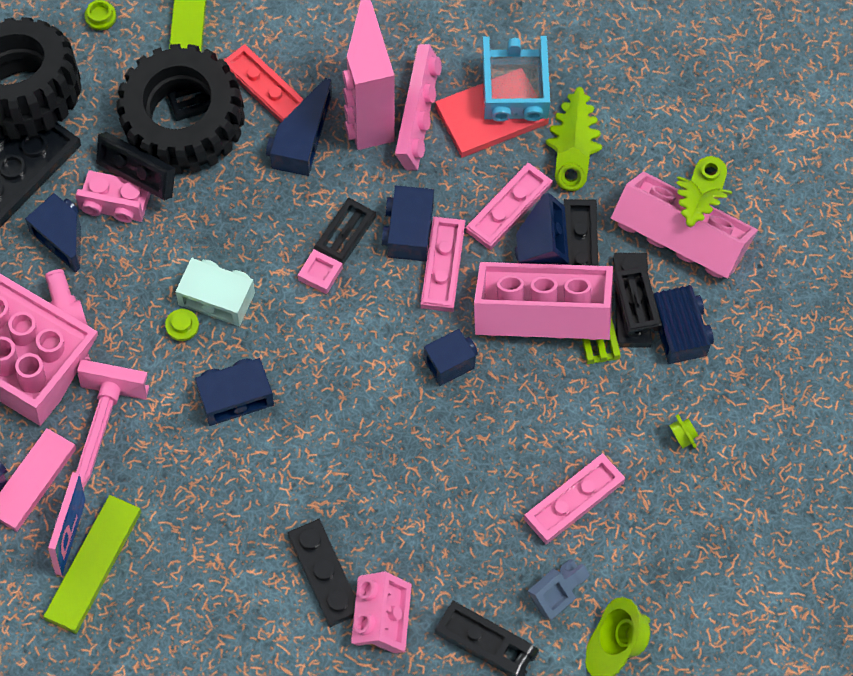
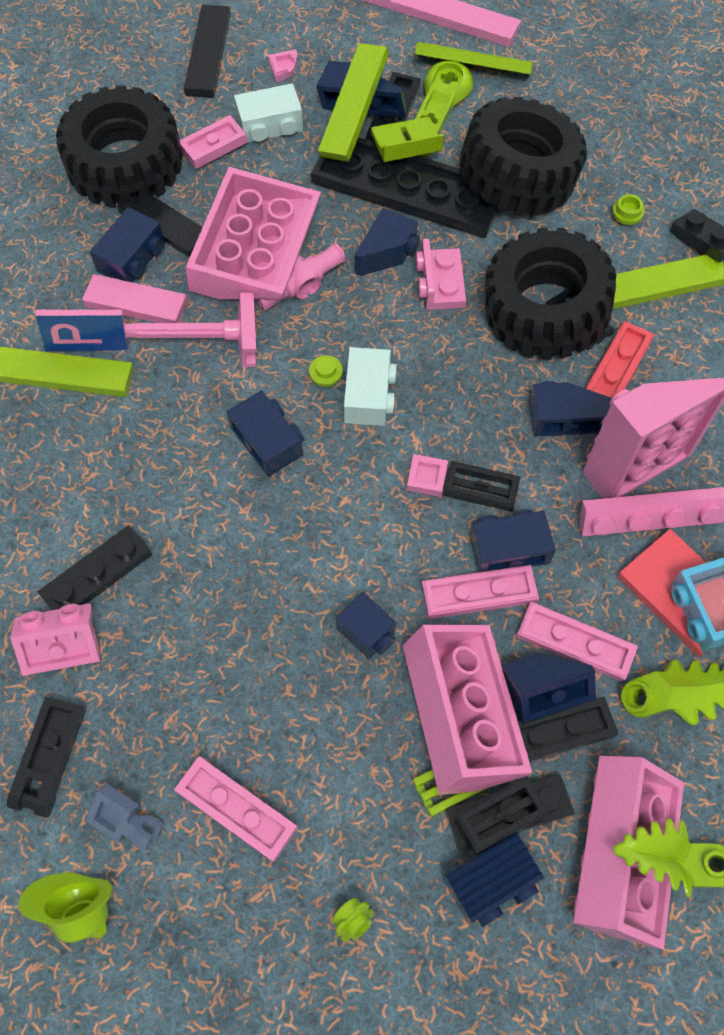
camera: 75 degrees right, 0 degrees up
(135, 165) = (471, 277): black tile -> none

